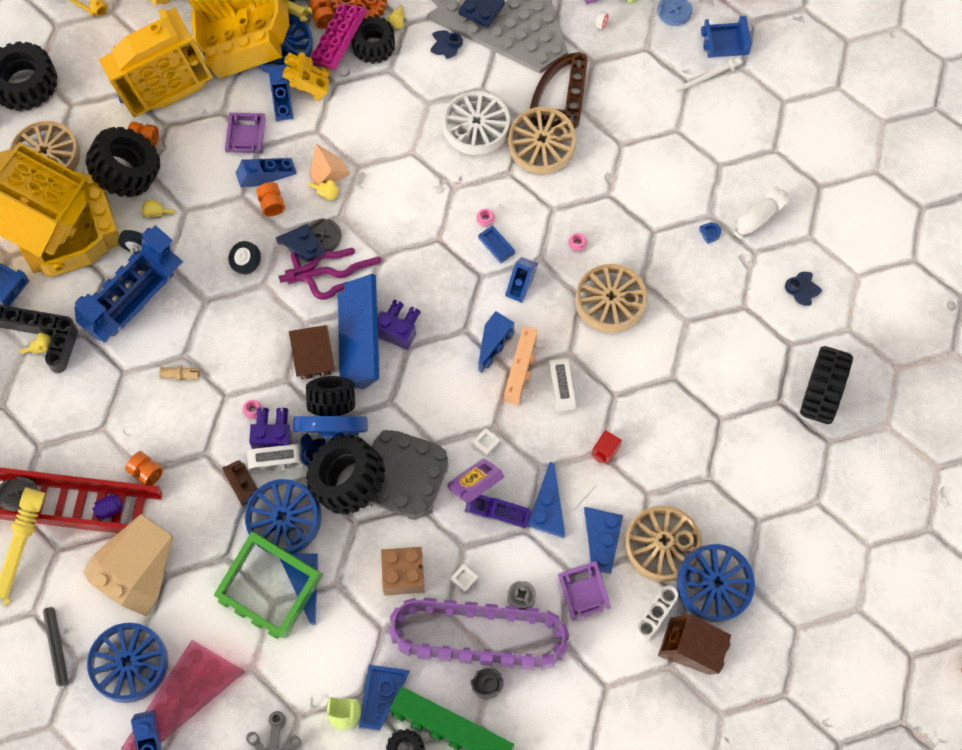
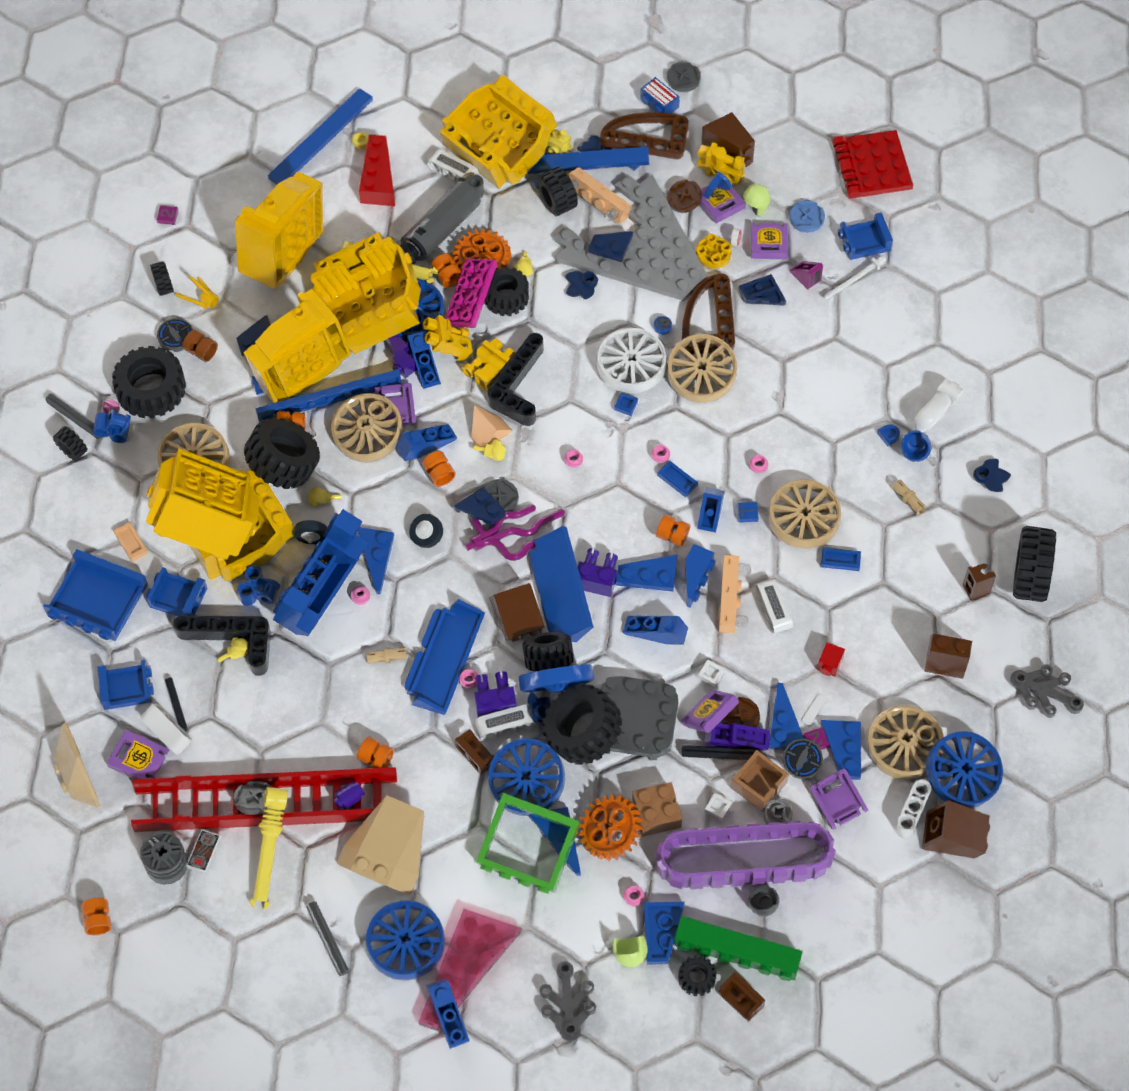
camera: 10 degrees left, 5 degrees down
(59, 36) = (172, 334): none -> tile
(73, 287) = (260, 588): none -> blue piece
(77, 49) = (200, 346): none -> dark orange wheel
(169, 314) = (360, 600): none -> bright pink plate
(186, 114) = (329, 395): none -> blue tile
(194, 272) = (377, 553): none -> blue wing
(212, 149) = (367, 427): none -> tan piece
(238, 375) = (447, 648): none -> blue slope
(260, 88) = (402, 358): none -> dark purple slope
(346, 104) = (493, 361): none -> yellow hips
(352, 582) = (610, 827): none -> orange gear
(359, 649) = (634, 890): none -> bright pink plate
(361, 125) = (513, 379): none -> black beam
(401, 204) = (573, 454): none -> bright pink plate
(442, 388) = (660, 629): none -> blue slope
(448, 333) = (649, 574): none -> blue wing
(463, 164) = (626, 404): none -> blue tile
(478, 293) = (666, 530): none -> orange wheel
(479, 523) = (717, 752): none -> black axle
(509, 489) = (744, 713): none -> reddish brown tile
(509, 559) = (759, 780): none -> medium nougat piece
(514, 93) = (662, 325): none -> tile
(557, 287) = (748, 512): none -> blue tile
(557, 543) = (802, 759): none -> tile
(575, 526) = (818, 737): none -> magenta tile
(578, 31) = (714, 252): none -> yellow tile
(616, 75) = (762, 291): none -> dark blue wing
(633, 23) = (769, 236): none -> medium lavender container
(637, 348) = (840, 559): none -> blue tile
(664, 64) = (808, 273): none -> magenta slope
(717, 296) = (909, 497): none -> tan pin
(722, 463) = (948, 655): none -> reddish brown slope
(733, 248) = (916, 446): none -> blue hair
(766, 395) = (977, 583): none -> reddish brown hinge
(812, 513) = (1044, 689): none -> flat silver plant

